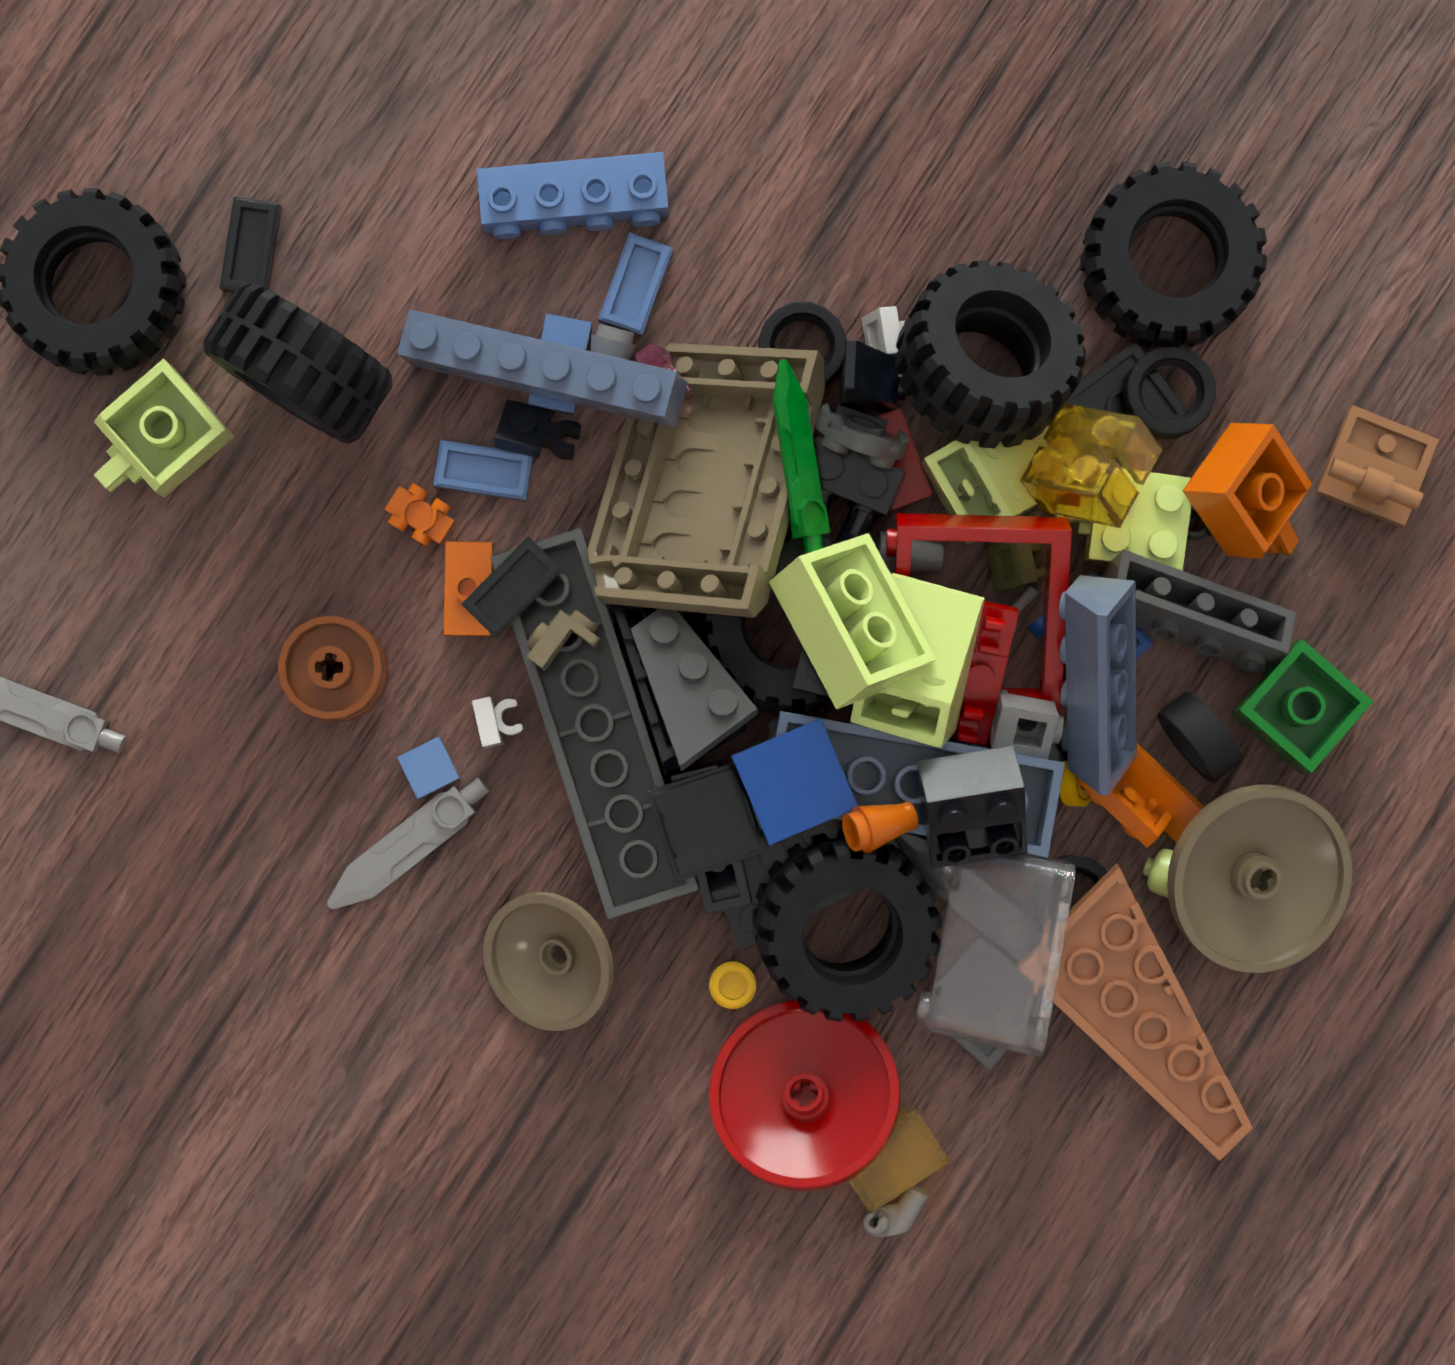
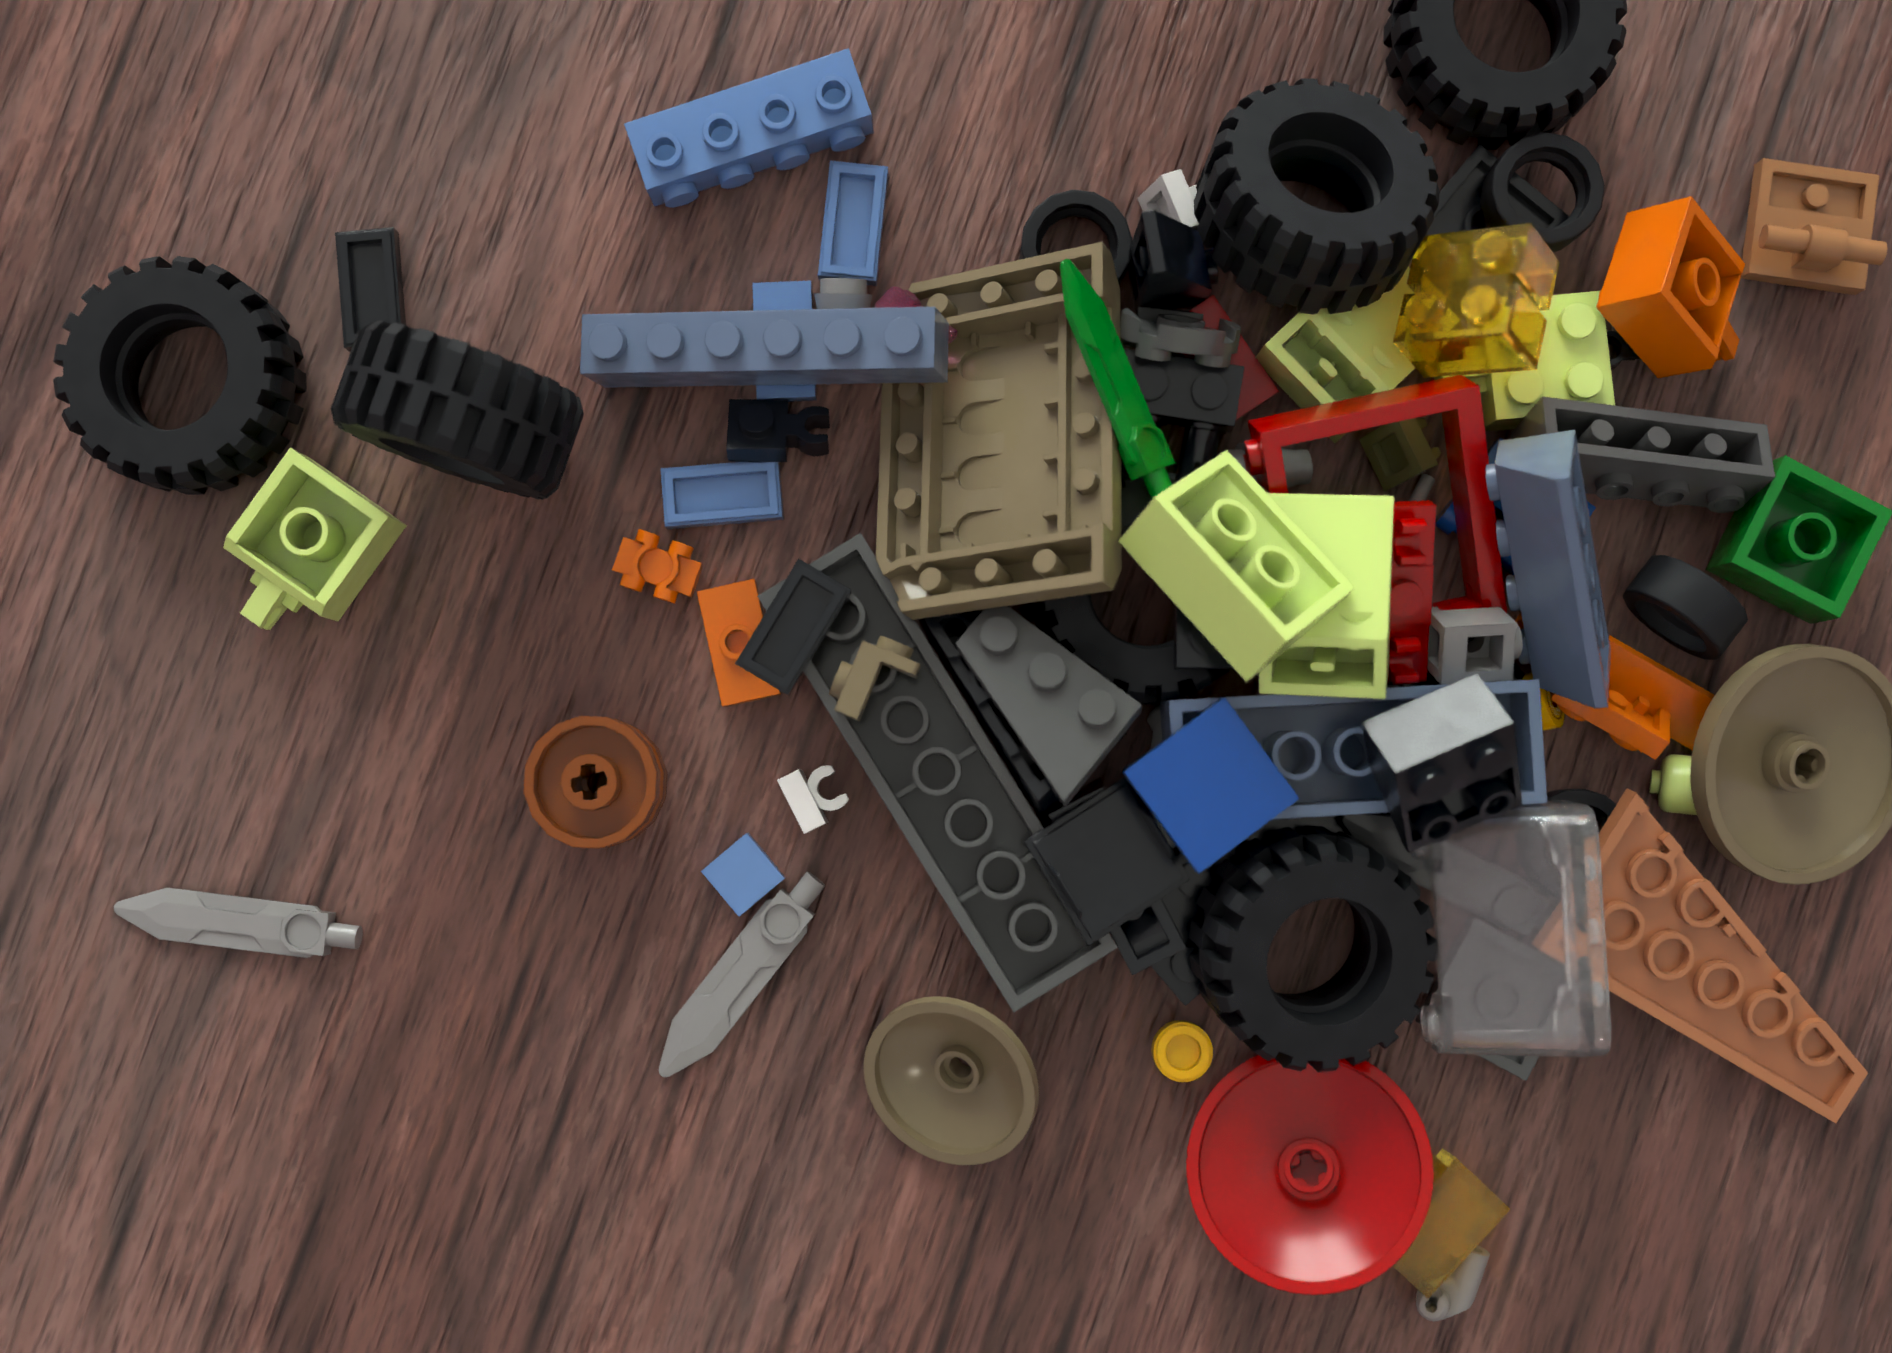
camera: 15 degrees left, 0 degrees up
(876, 825) = (1327, 816): orange cone -> none

